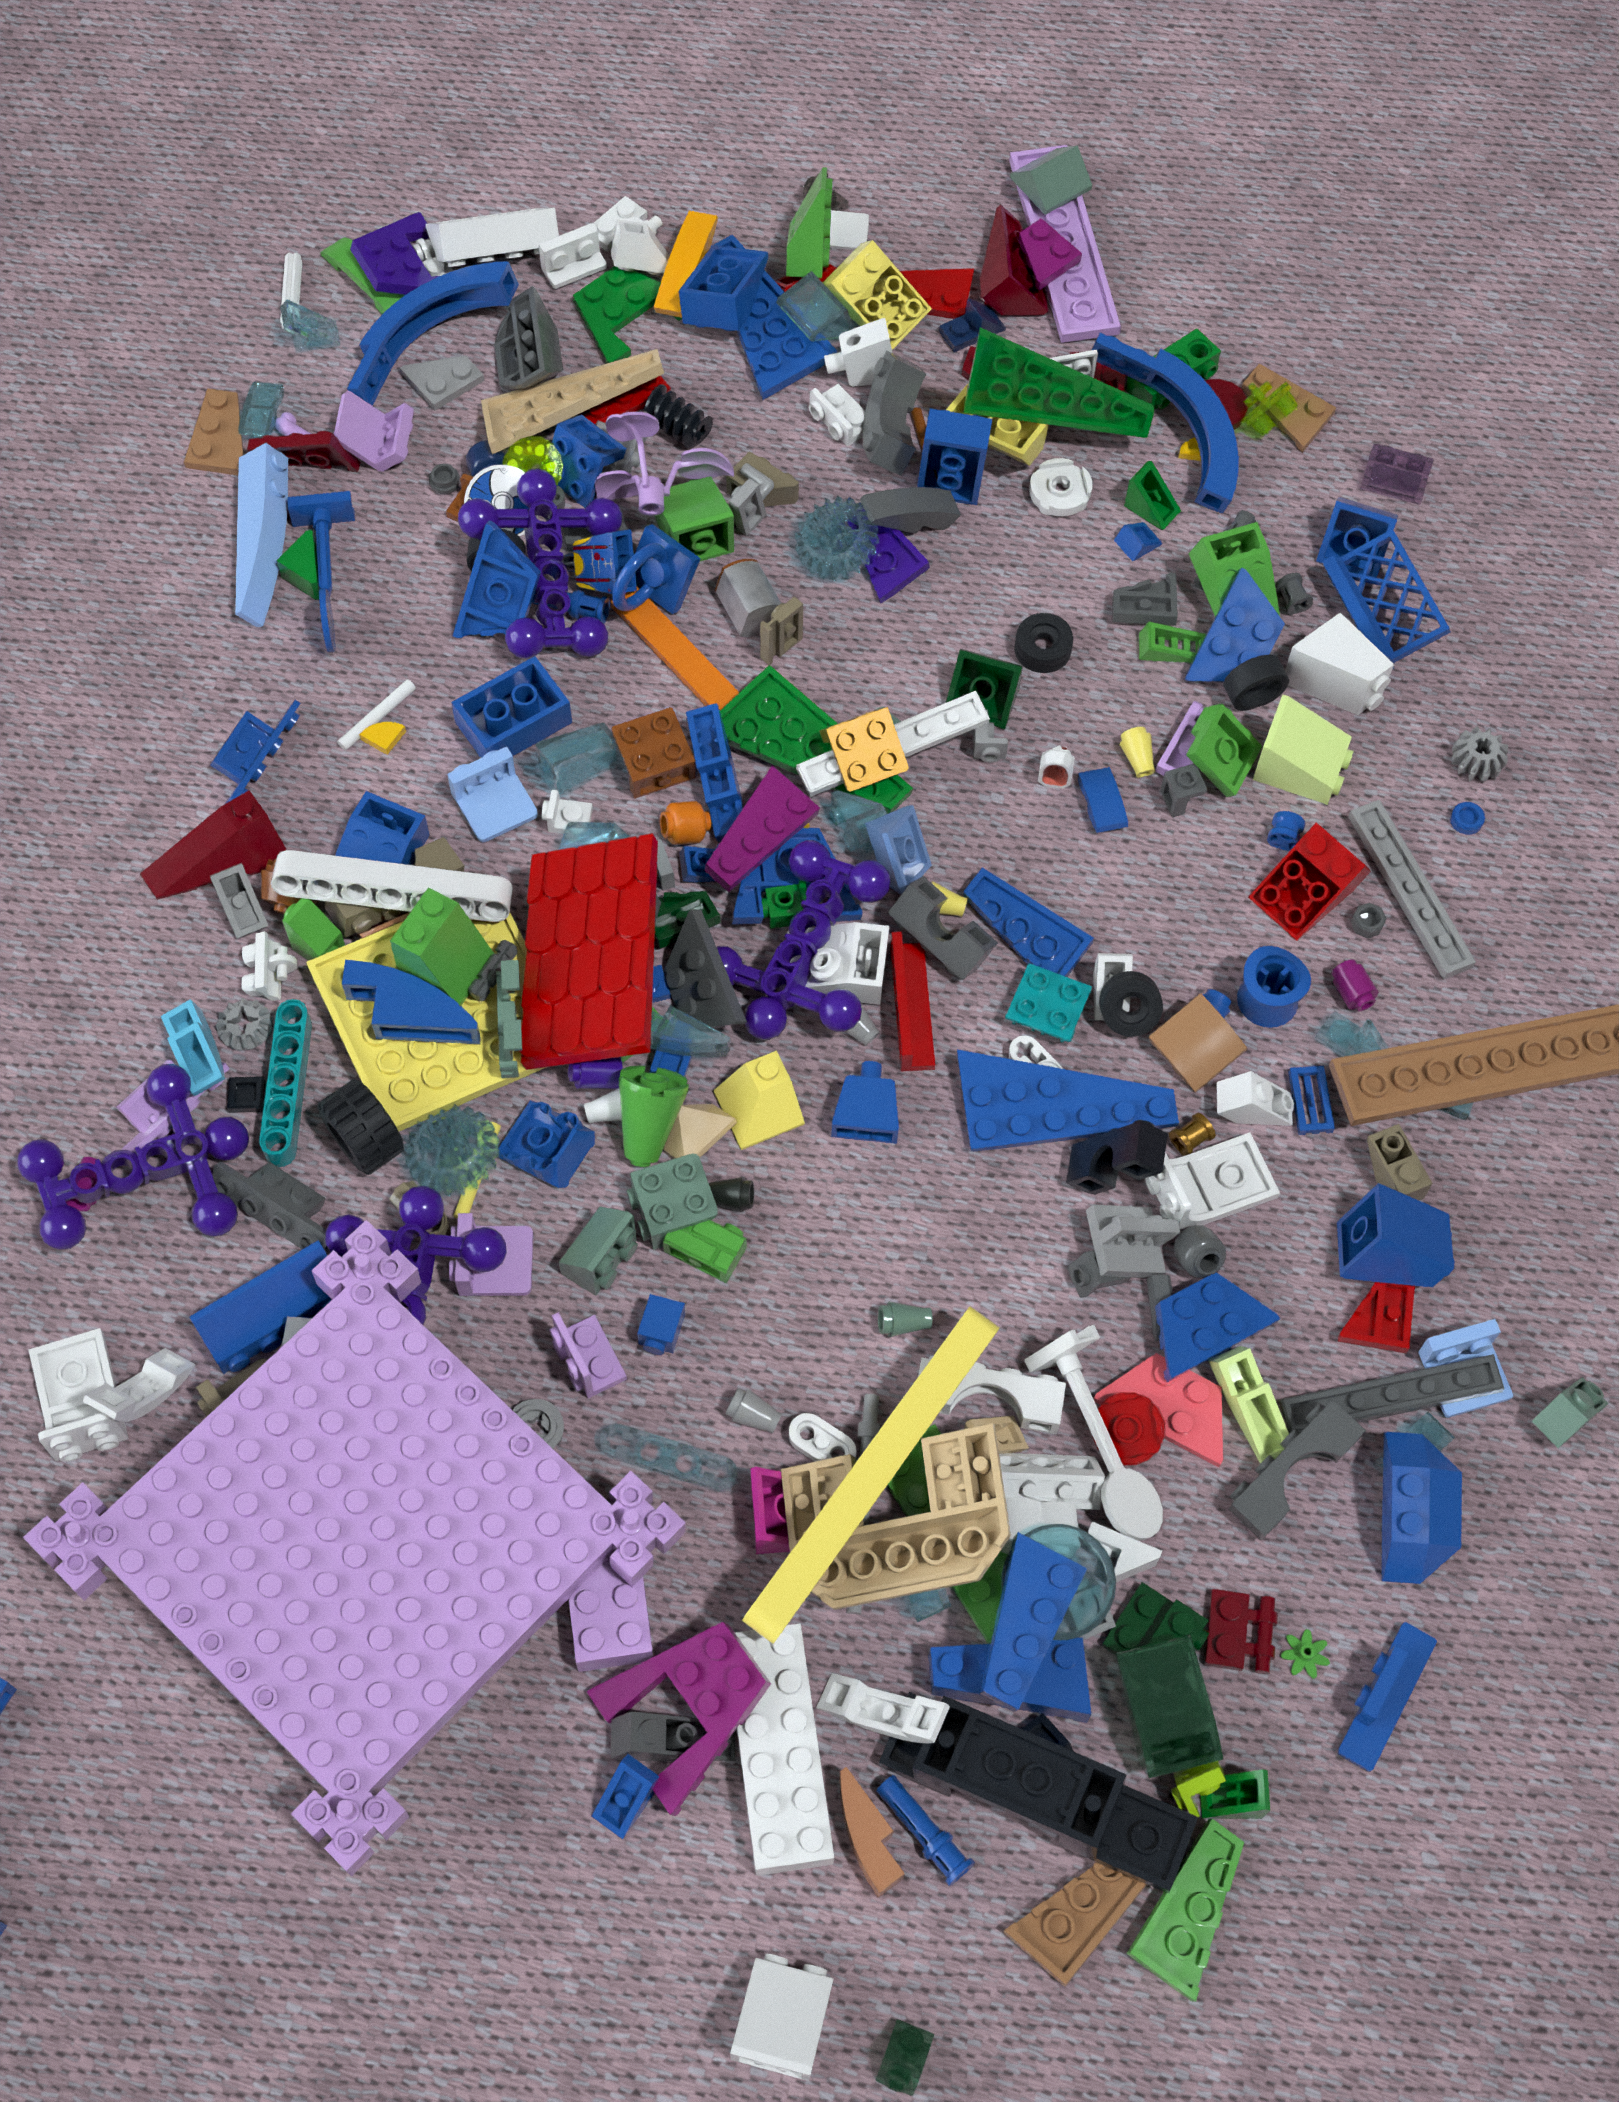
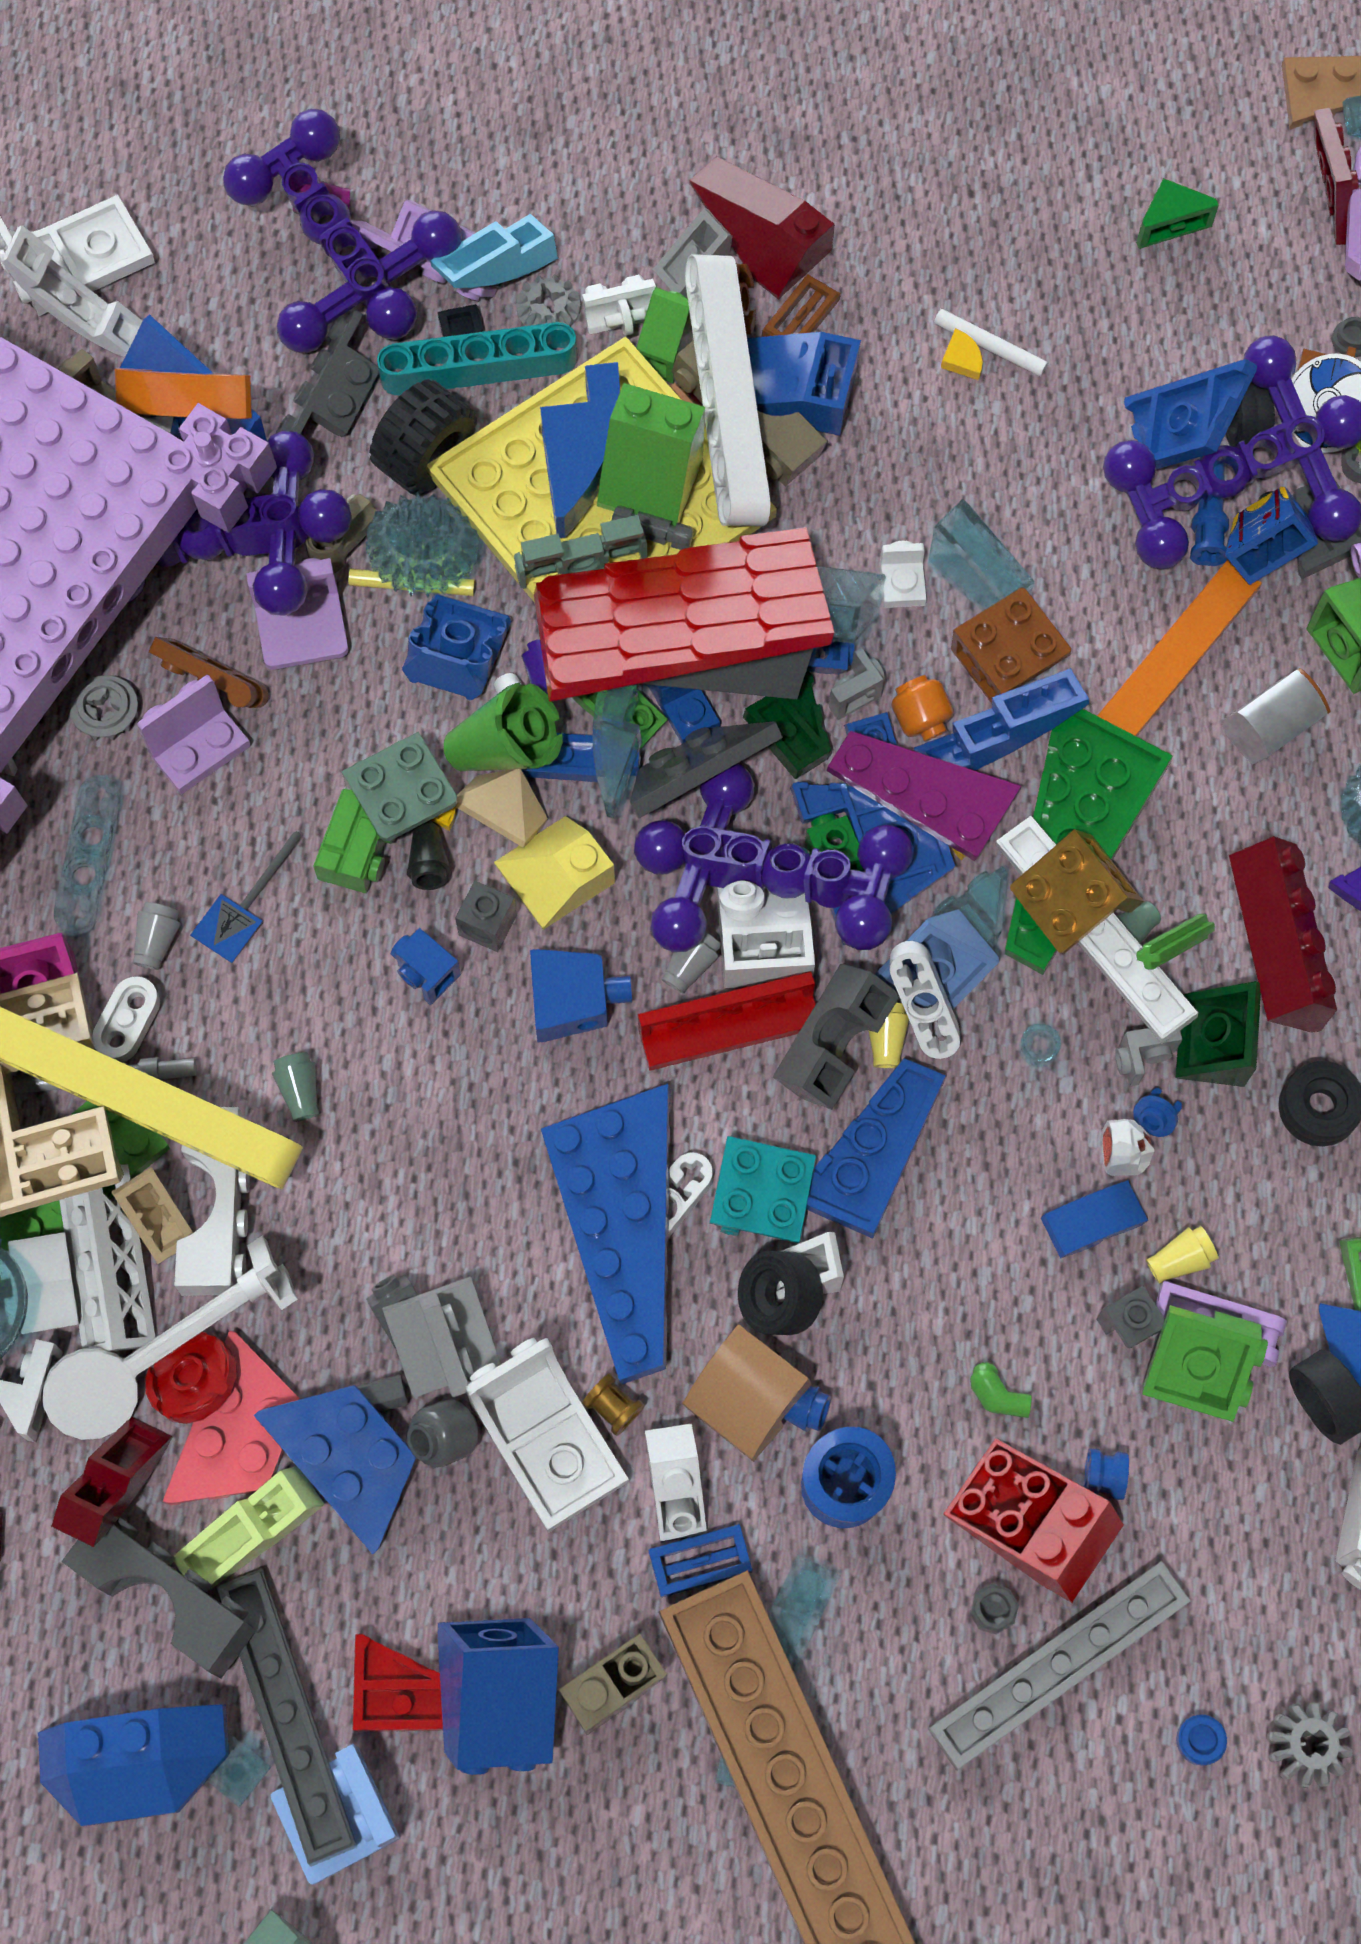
camera: 80 degrees right, 5 degrees up
(248, 746) = (904, 218): blue bracket -> none
(260, 529) = (1204, 154): light blue slope -> none
(273, 1309) = (178, 393): none -> orange slope
(296, 844) = (817, 318): none -> dark orange tile
(321, 512) = (1109, 242): blue piece -> none
(491, 795) = (906, 486): light blue bracket -> none
(512, 710) = (1024, 479): blue brick -> none
(526, 1335) = (181, 658): none -> dark orange plate
(600, 1249) = (322, 725): sand green slope -> none
(661, 572) = (1282, 601): blue tile -> none
(661, 1325) = (244, 812): blue brick -> none
(752, 1357) = (230, 926): none -> piece
(782, 631) = (1231, 761): dark tan plate -> none
(792, 1155) = (486, 916): none -> dark grey brick
(822, 1207) = (425, 964): none -> blue brick
(914, 696) = (1175, 941): none -> bright green axle
(919, 865) = (927, 982): none -> white beam
(925, 625) = (1284, 934): none -> dark red slope
(970, 798) = (1053, 1048): none -> clear light blue bush
(1034, 743) = (1157, 1114): none -> blue plate
(1132, 1149) = (539, 1298): black arch -> none
(1208, 1490) = (110, 1481): none -> dark red slope
(1217, 889) = (994, 1395): none -> bright green arm
(1303, 753) = (1234, 1479): yellowish green slope -> none
(1354, 985) = (883, 1599): magenta brick -> none

